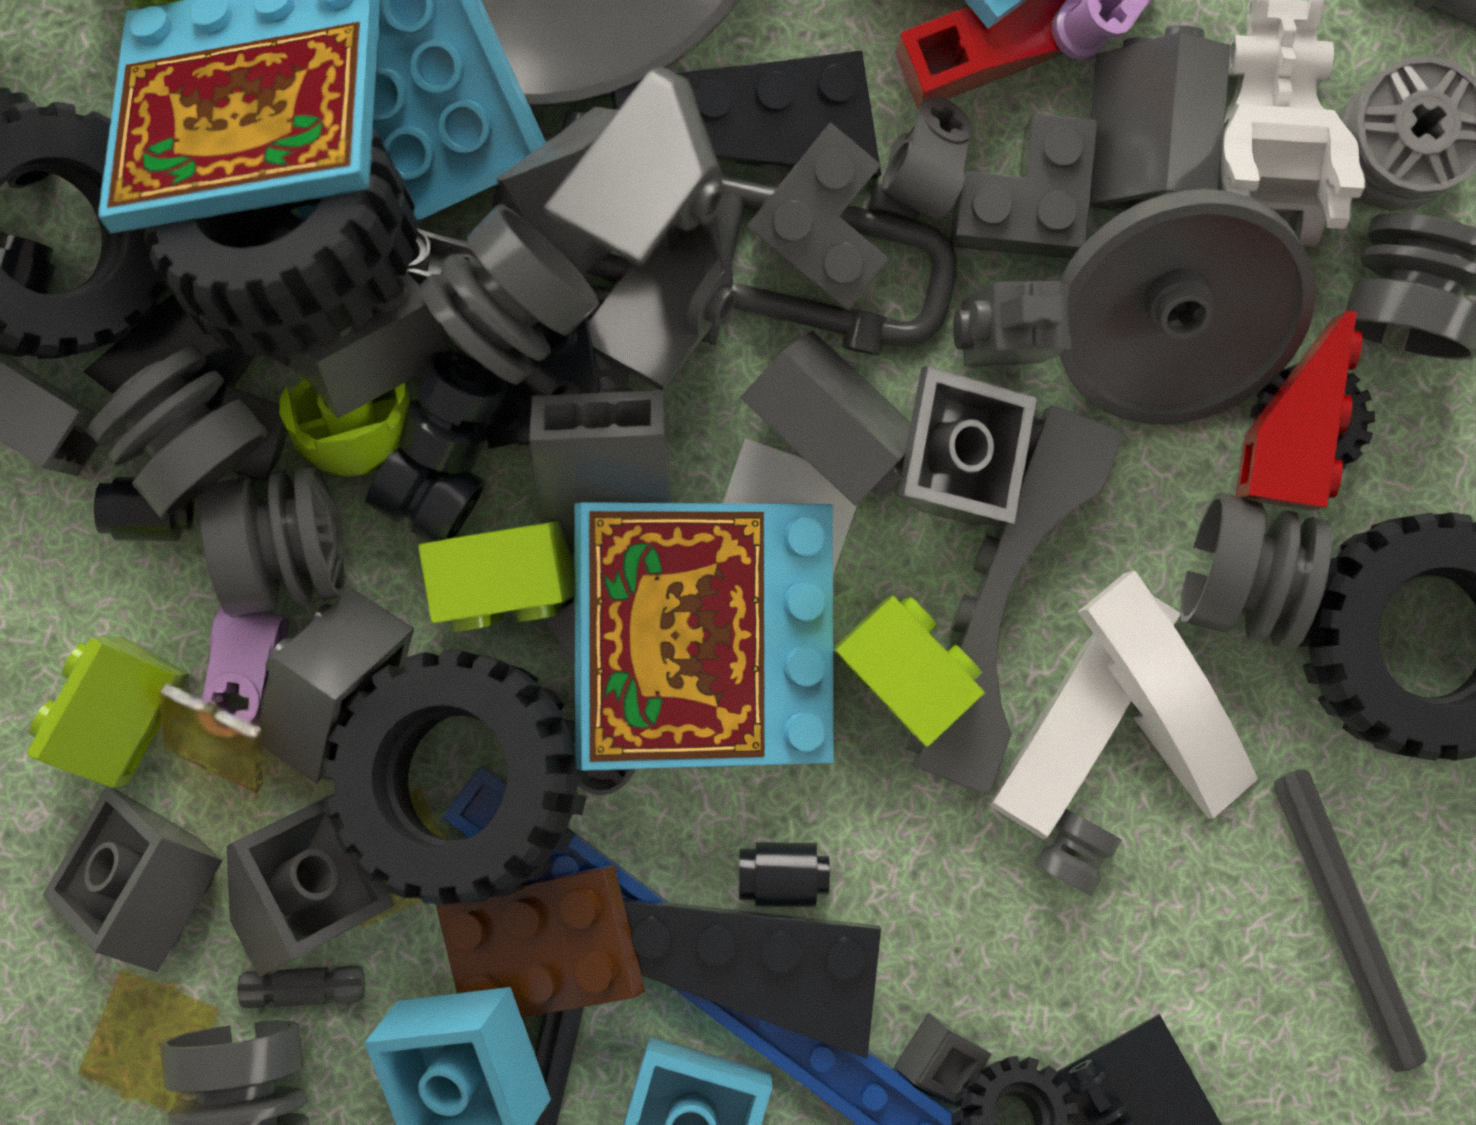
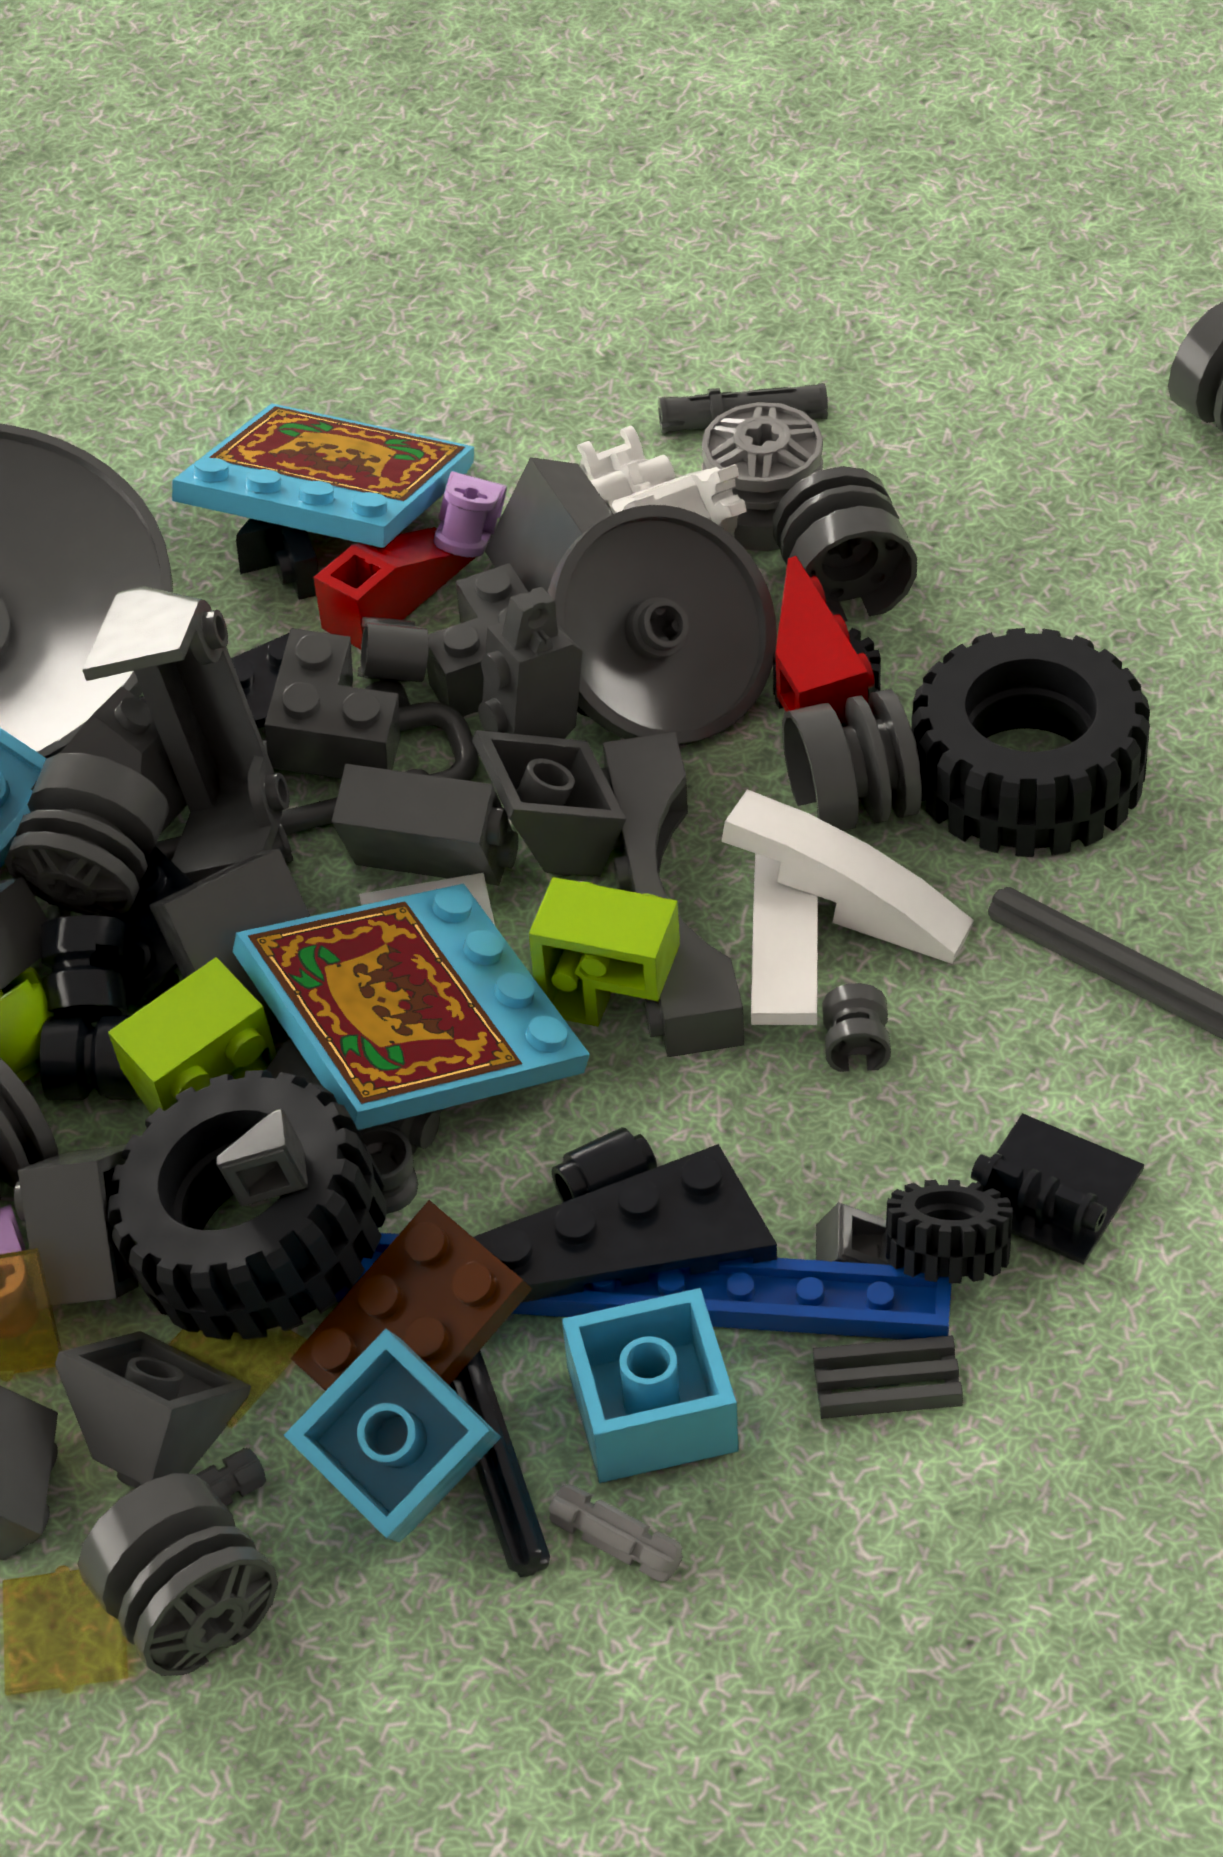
camera: 25 degrees left, 40 degrees down
(462, 830) = (265, 1161): none -> dark grey slope

